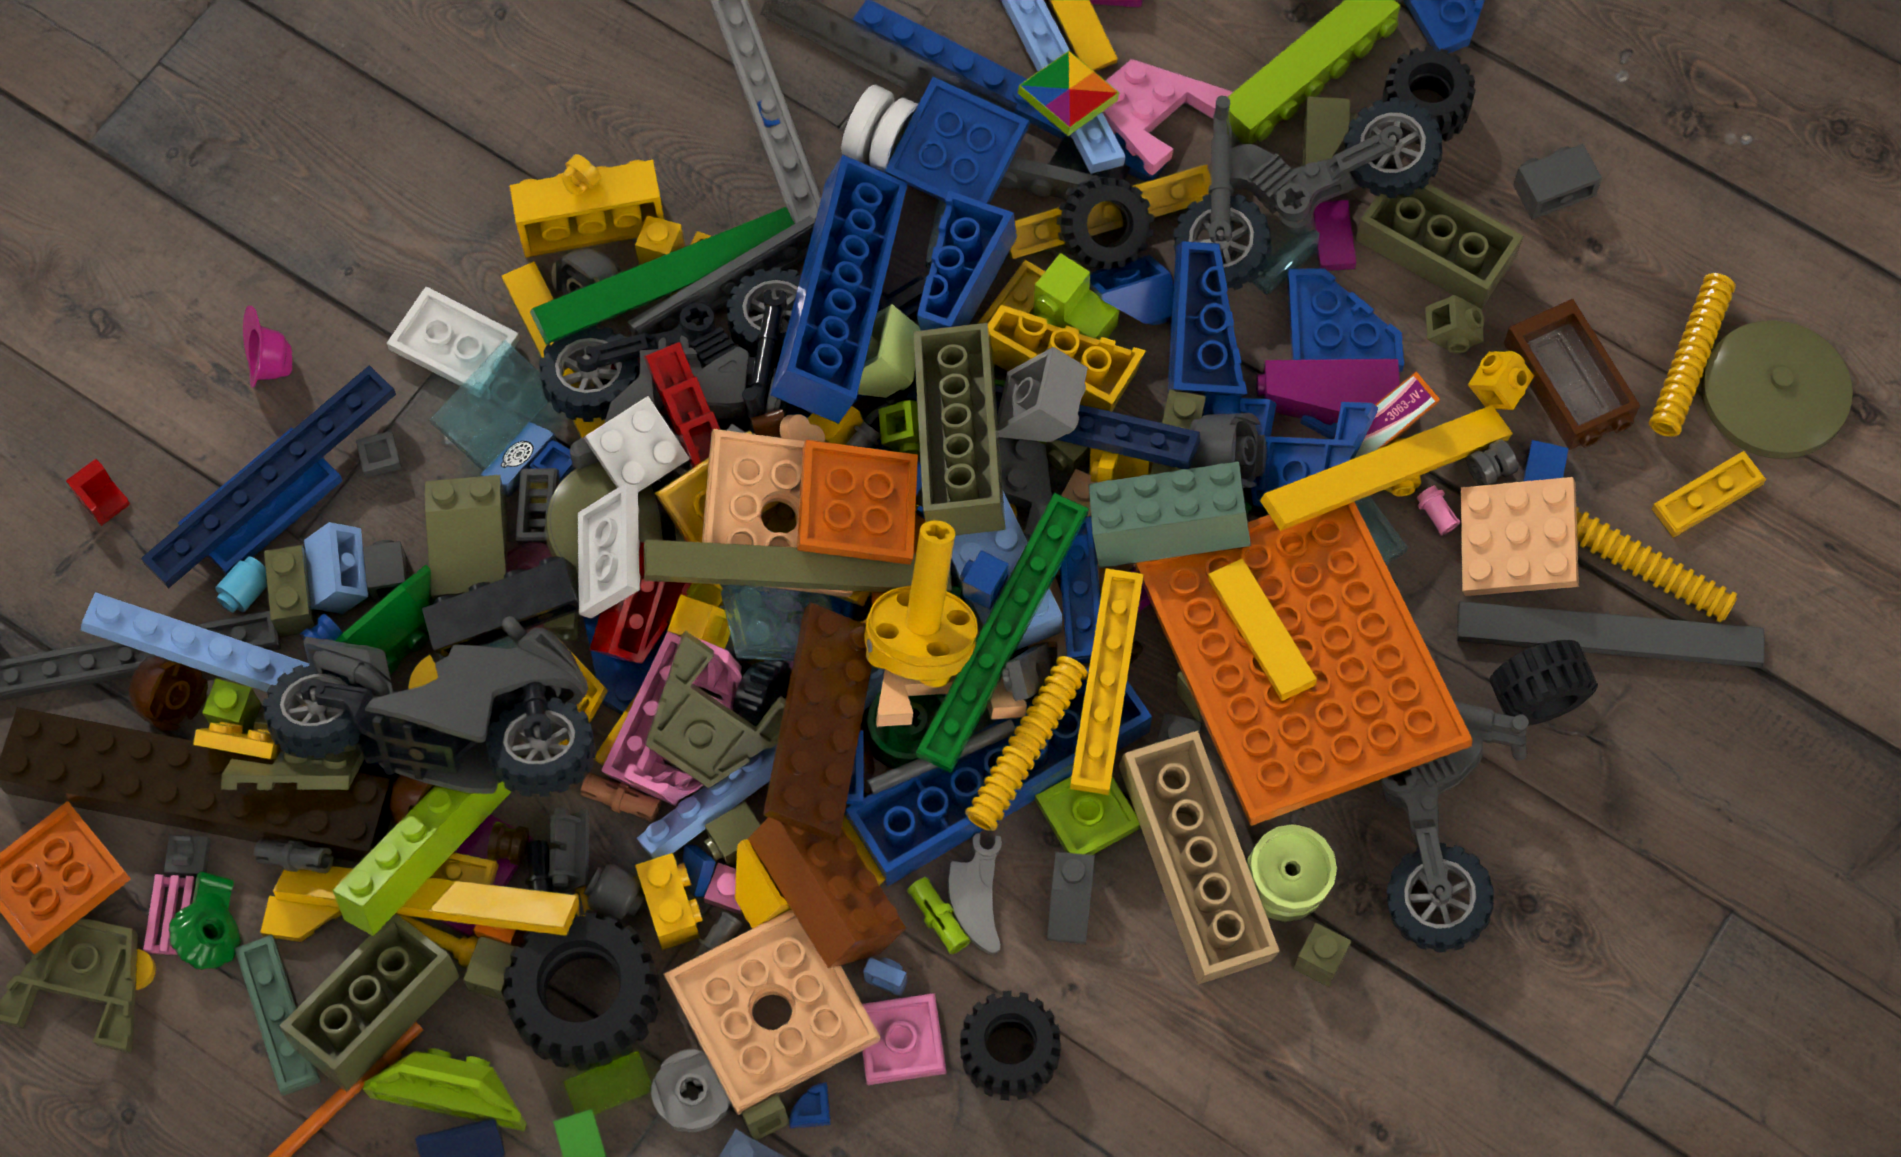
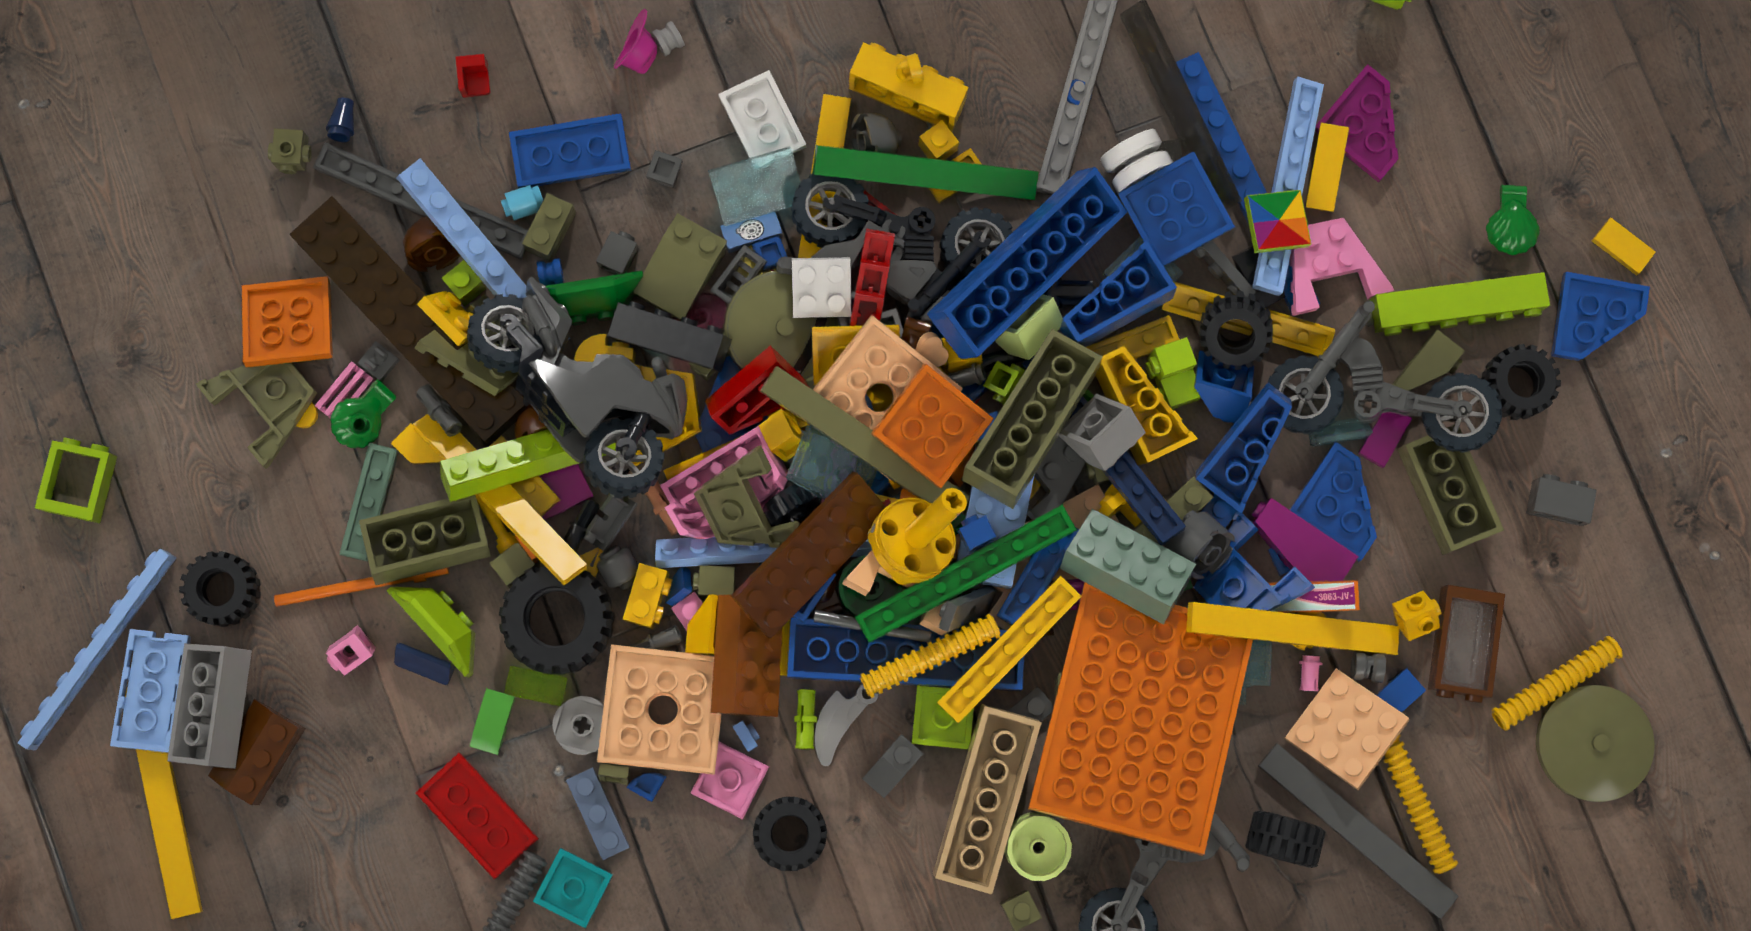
camera: 25 degrees right, 15 degrees up
(268, 476) = (583, 141): dark blue plate -> none
(293, 323) = (668, 38): none -> light grey wheel
(336, 568) = (586, 232): light blue brick -> none
(508, 843) = (573, 492): dark brown wheel -> none
(608, 551) = (754, 350): white plate -> none
(715, 288) = (954, 201): dark grey tile -> none
(1262, 629) = (1128, 686): yellow tile -> none
(1454, 324) = (1414, 556): olive brick -> none
(1708, 494) = (1494, 782): yellow tile -> none

